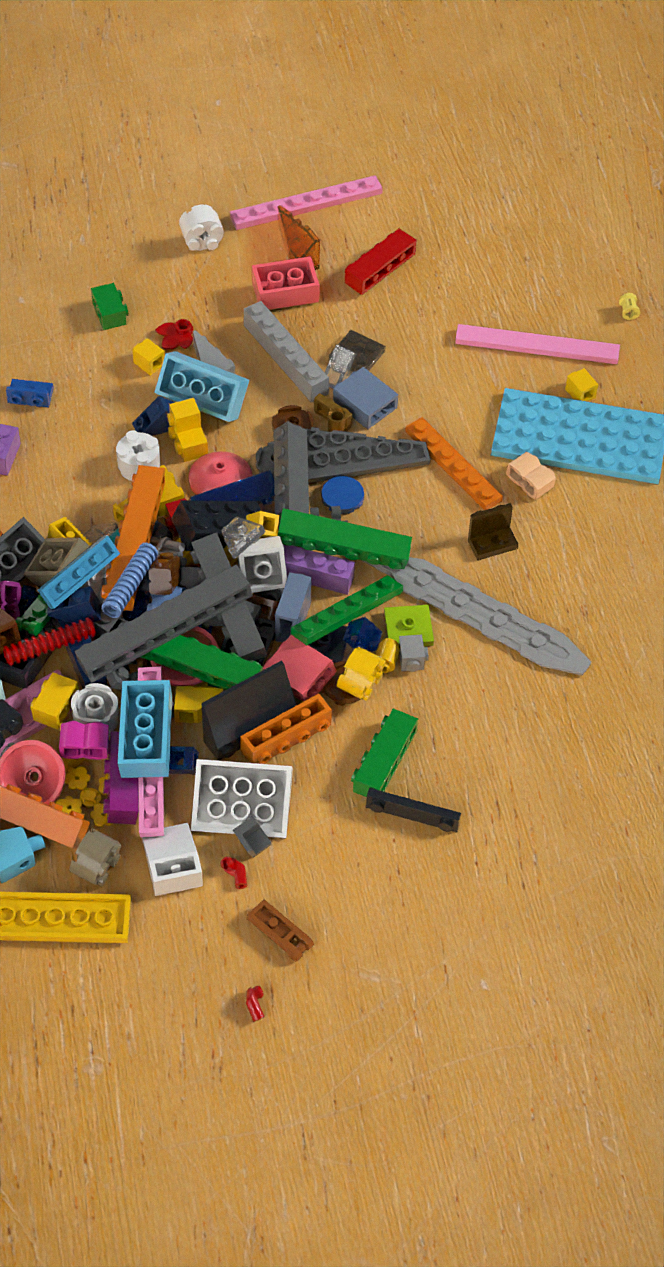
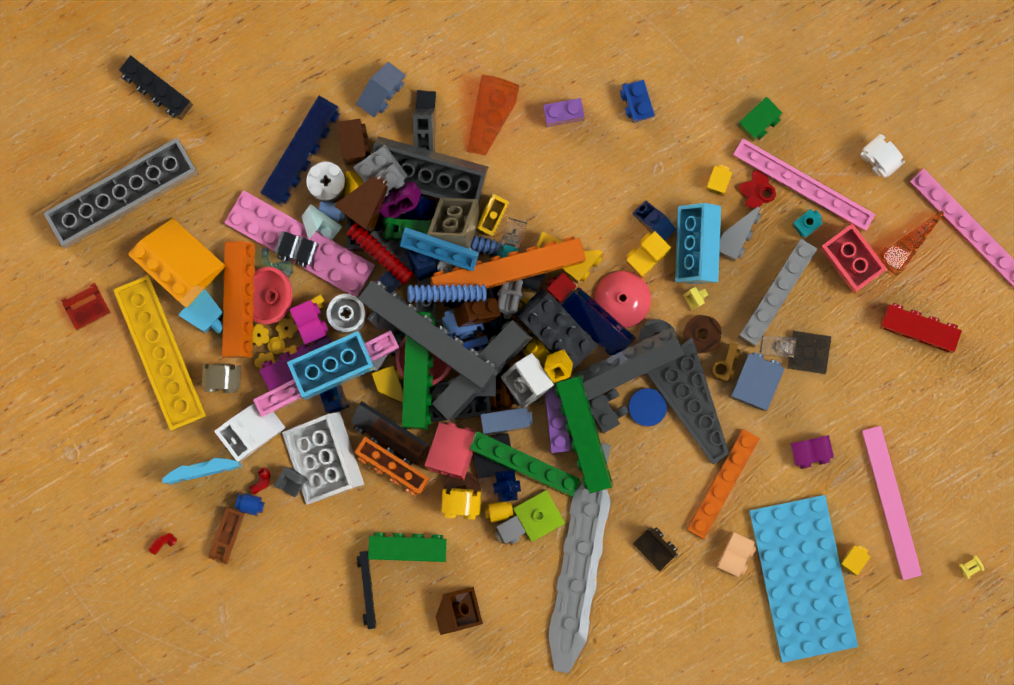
camera: 70 degrees right, 30 degrees up
(54, 700) = (338, 280): yellow brick -> none
(136, 450) = (614, 218): white brick -> none
(188, 300) = (804, 185): none -> bright pink plate
(191, 916) = (198, 470): none -> medium azure slope
(228, 304) = (803, 228): none -> teal brick
(241, 534) = (534, 356): clear wing -> none
(253, 415) = (695, 298): none -> light yellow tile
(256, 890) = (249, 504): none -> blue brick
(456, 380) = (811, 451): none -> magenta brick
(479, 734) = (458, 611): none -> reddish brown slope

